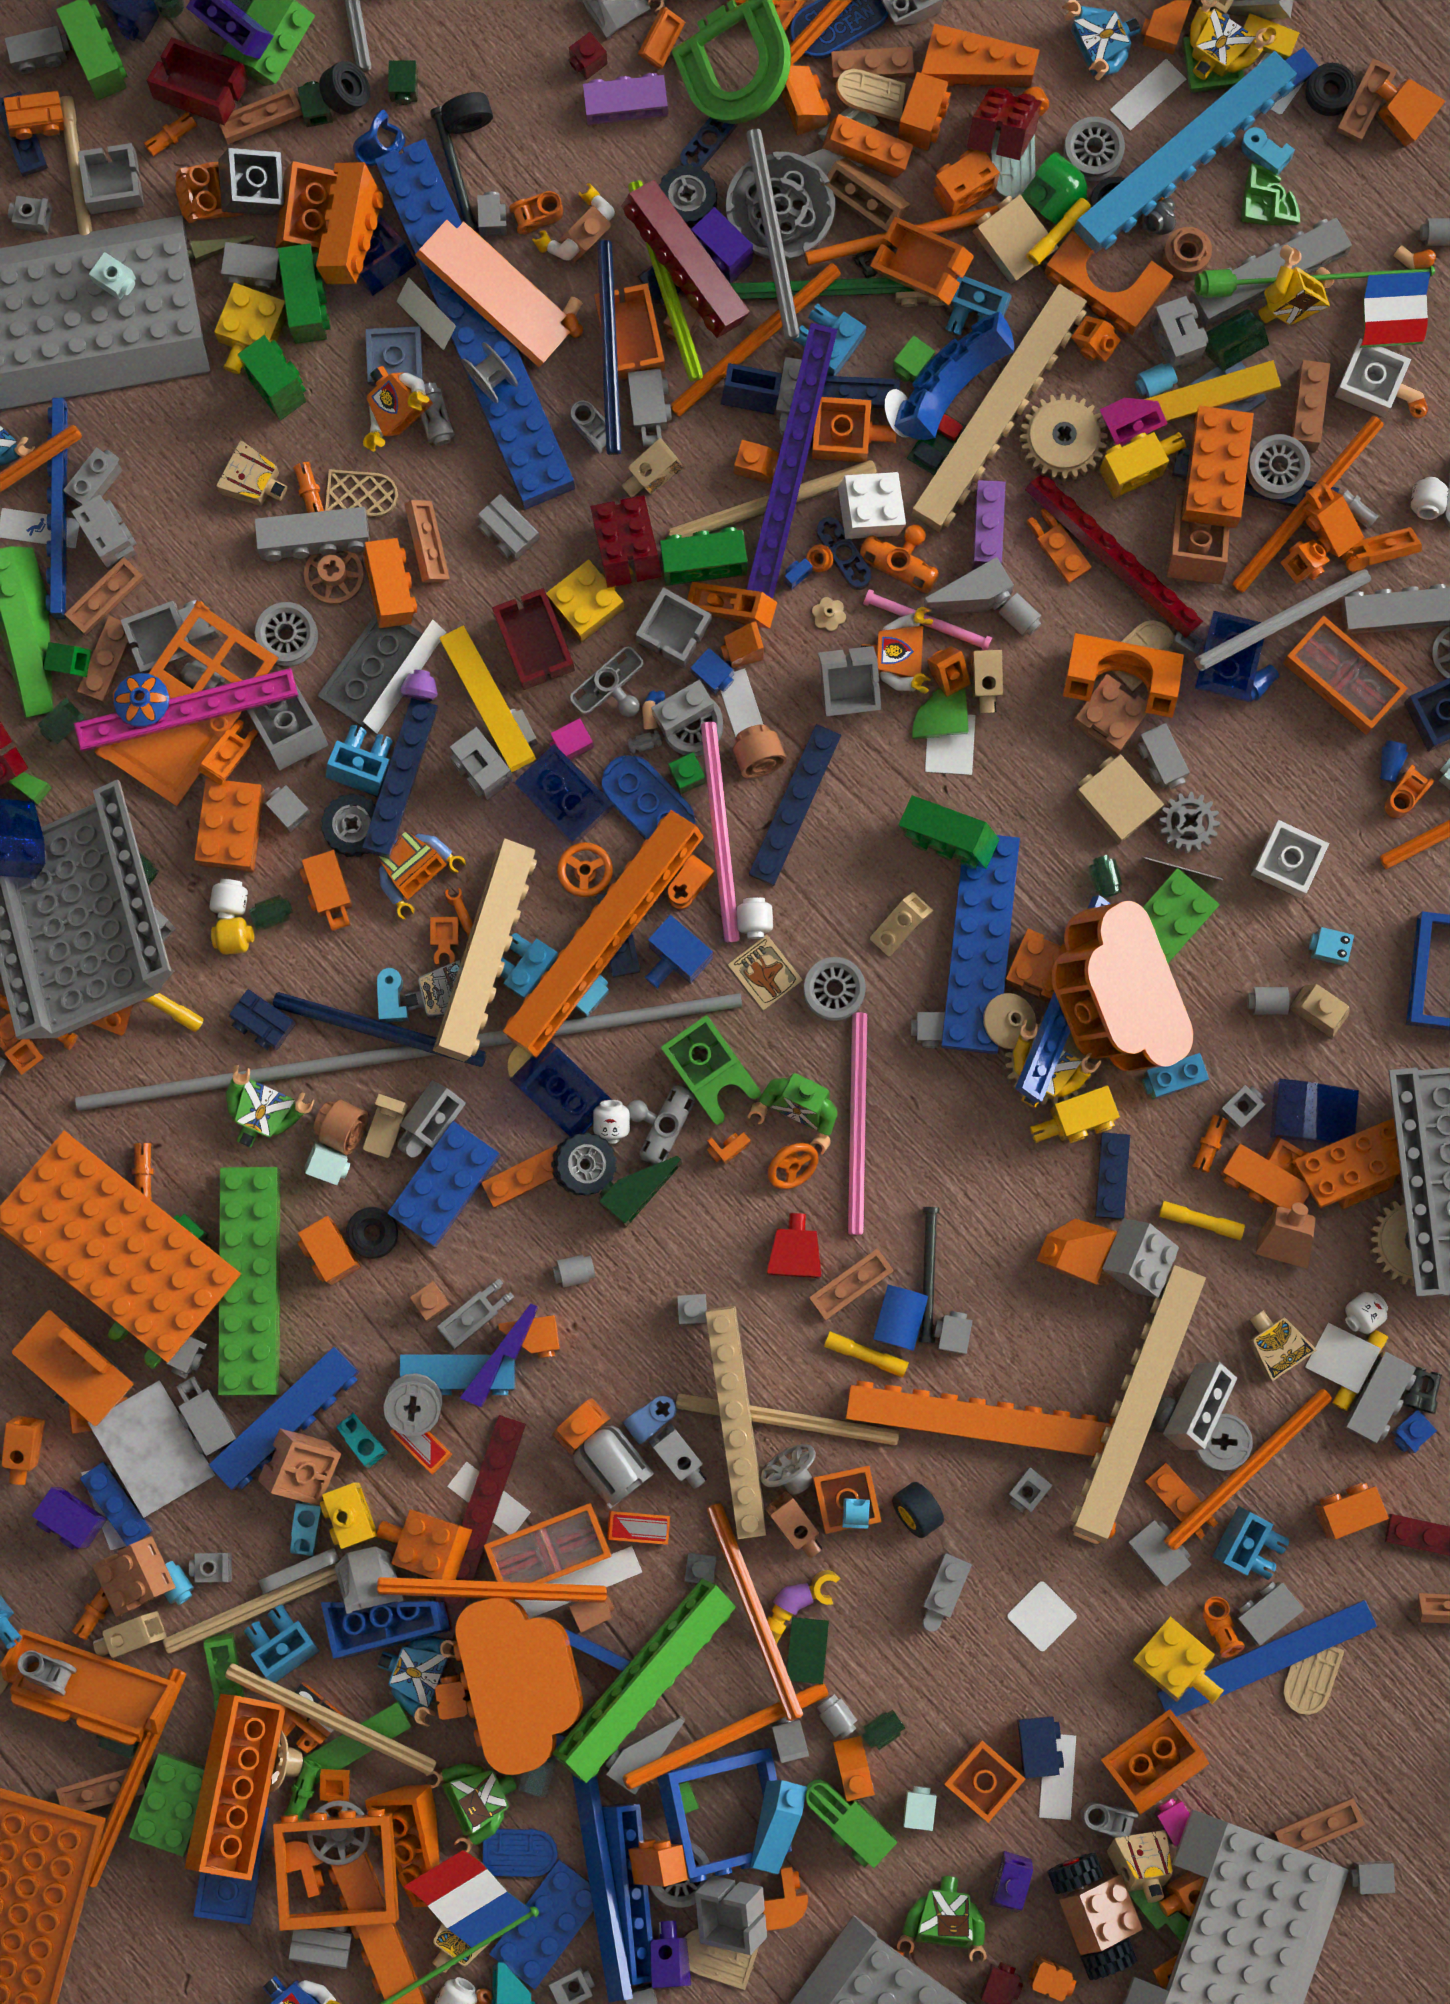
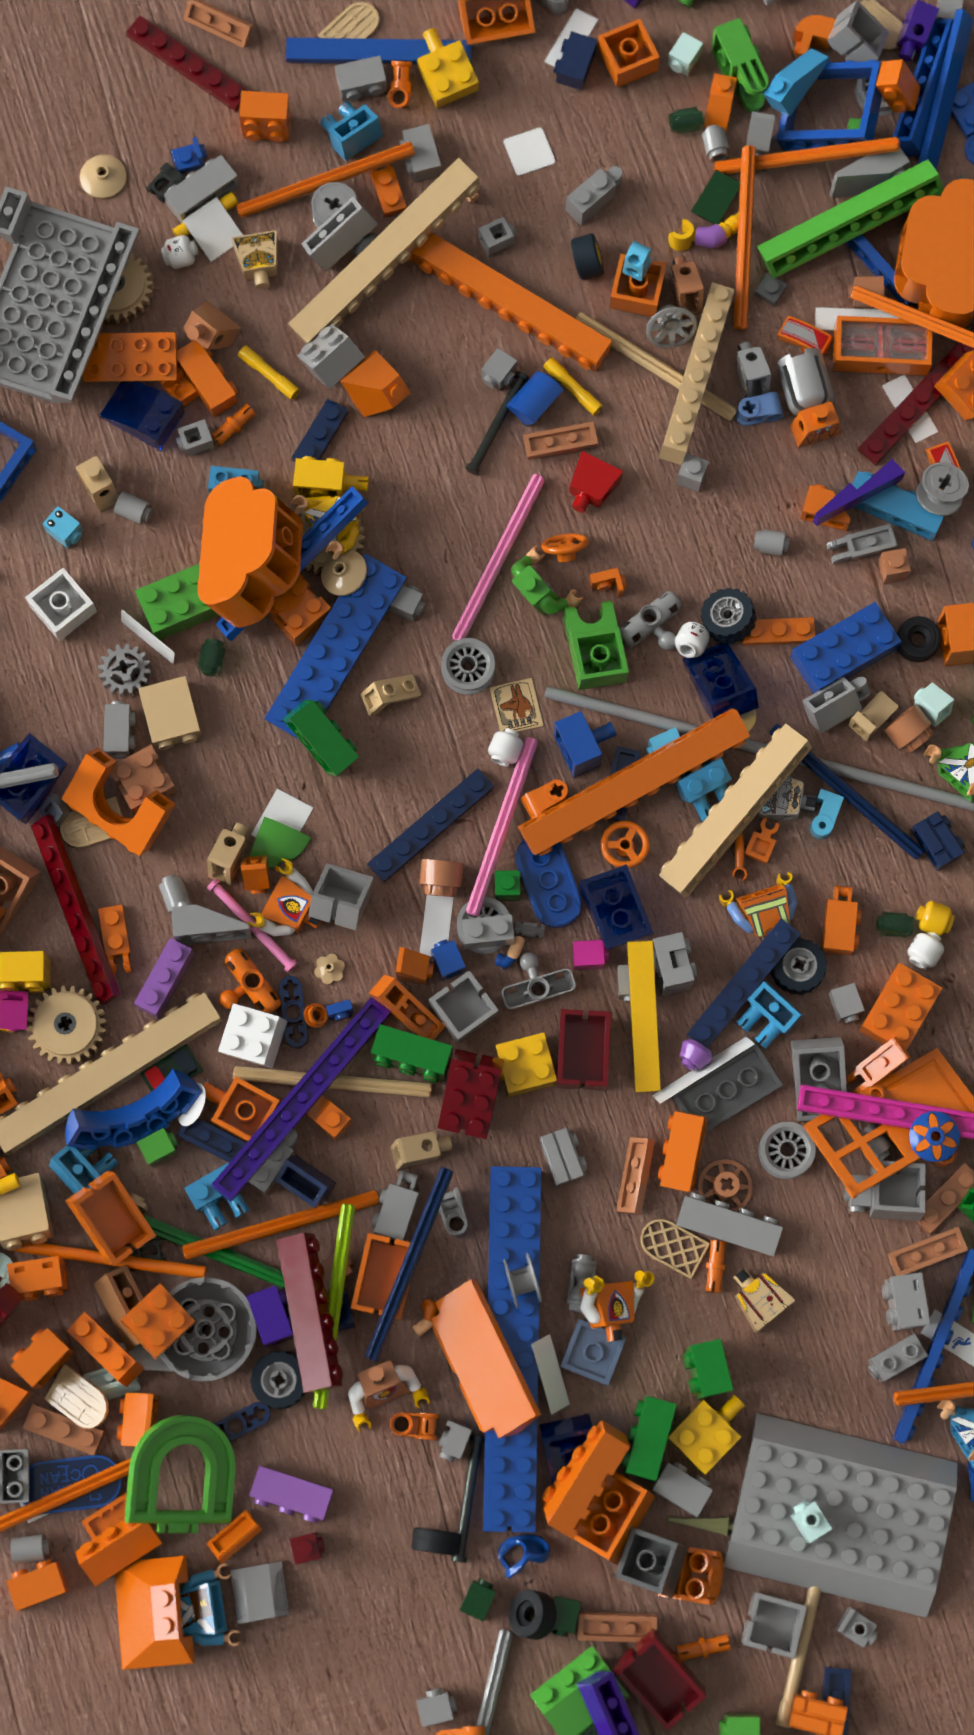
camera: 155 degrees left, 5 degrees down
(634, 1191) = (694, 576): dark green slope -> none
(772, 234) = (224, 1303): light grey axle -> none
(827, 182) = (157, 1321): none -> orange brick

